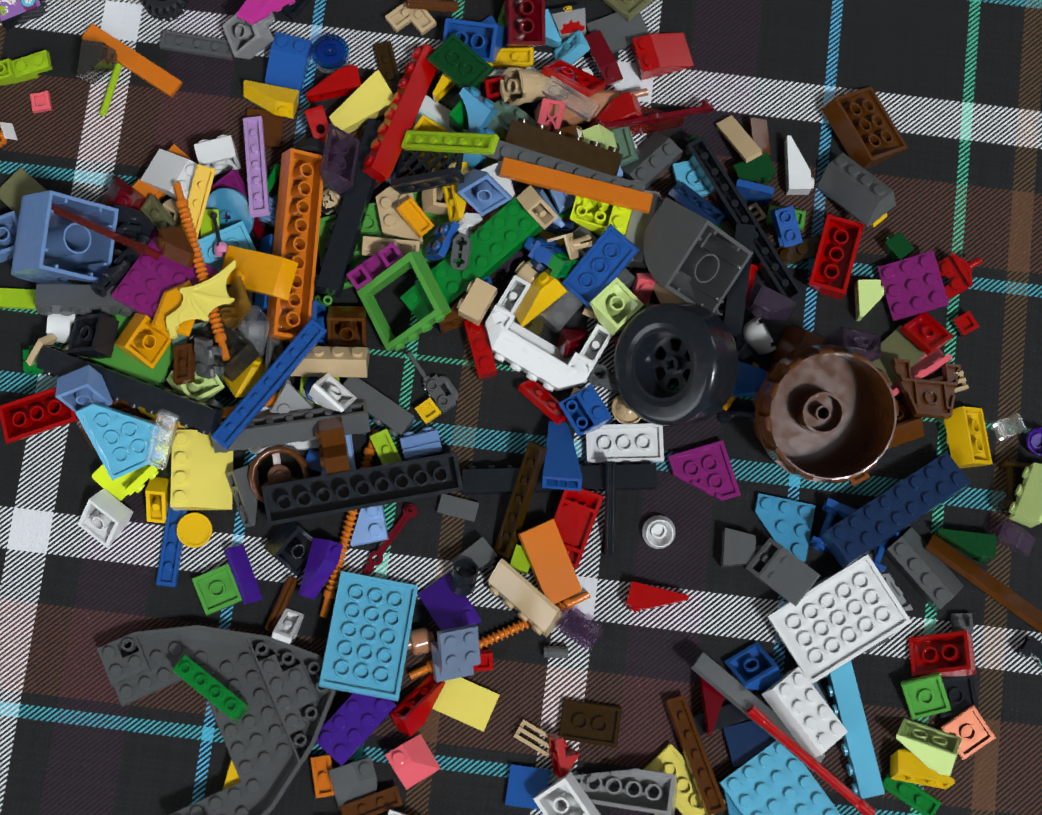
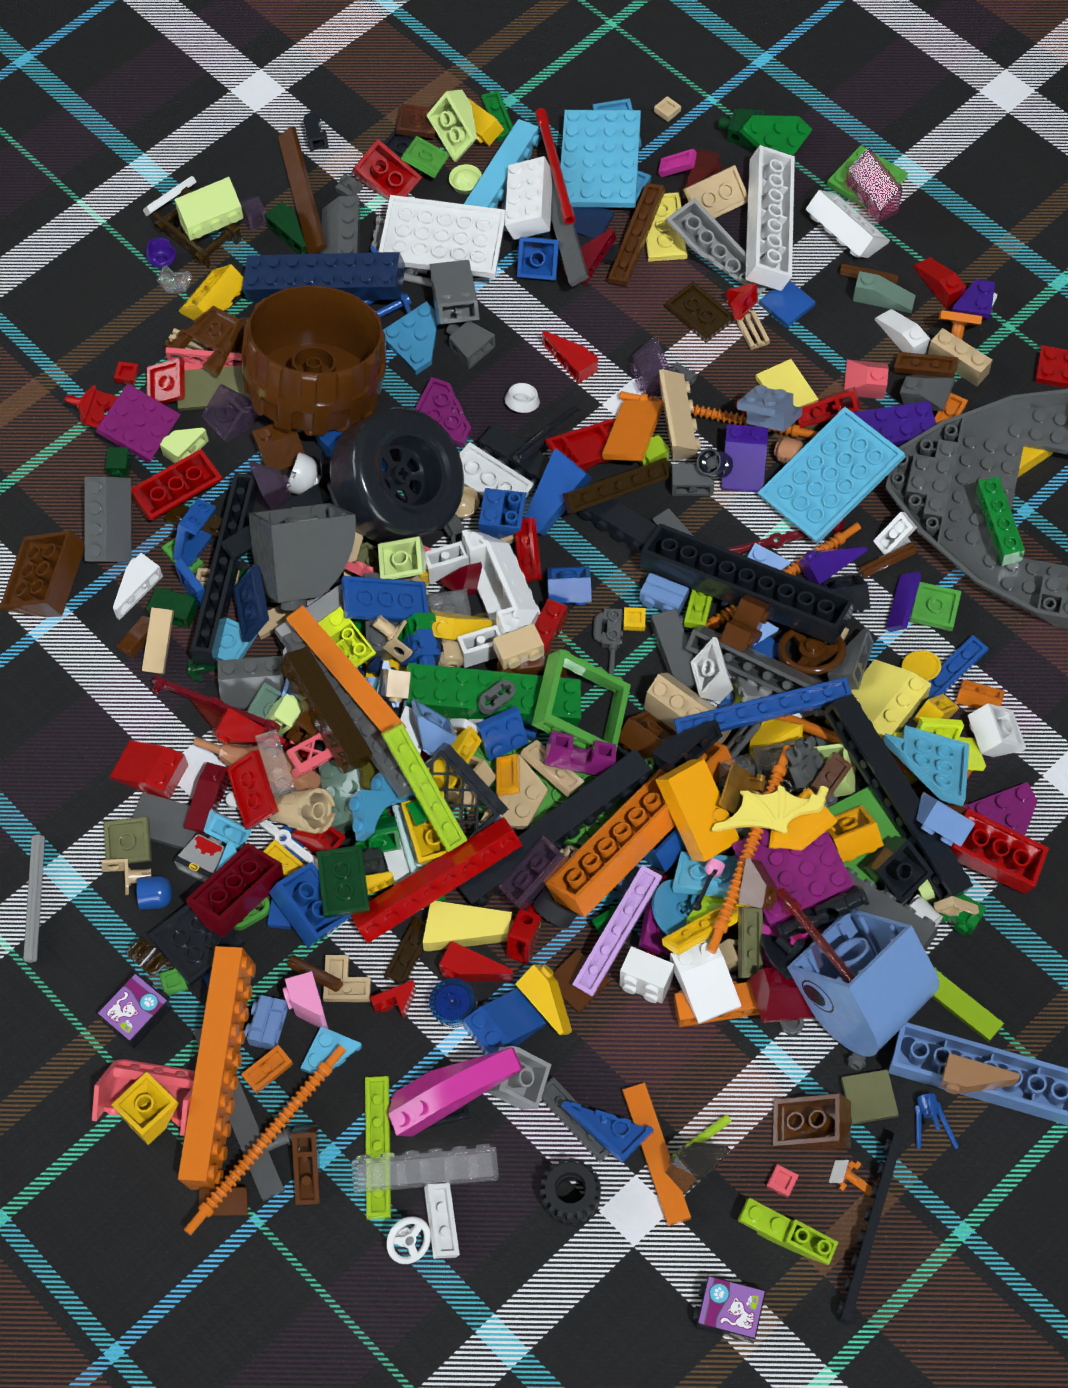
camera: 135 degrees left, 15 degrees down
(44, 147) = (812, 1122): none -> reddish brown slope
(58, 457) = (1009, 808): none -> magenta plate
(137, 542) = (978, 695): none -> orange slope
(162, 439) = (898, 725): clear plate -> none
(164, 47) = (613, 1133): none -> blue wing
(302, 307) = (686, 746): none -> black slope
(368, 31) = (400, 995): none -> red slope
(496, 401) = (569, 585): none -> slope
(878, 704) = (464, 178): none -> yellowish green hat

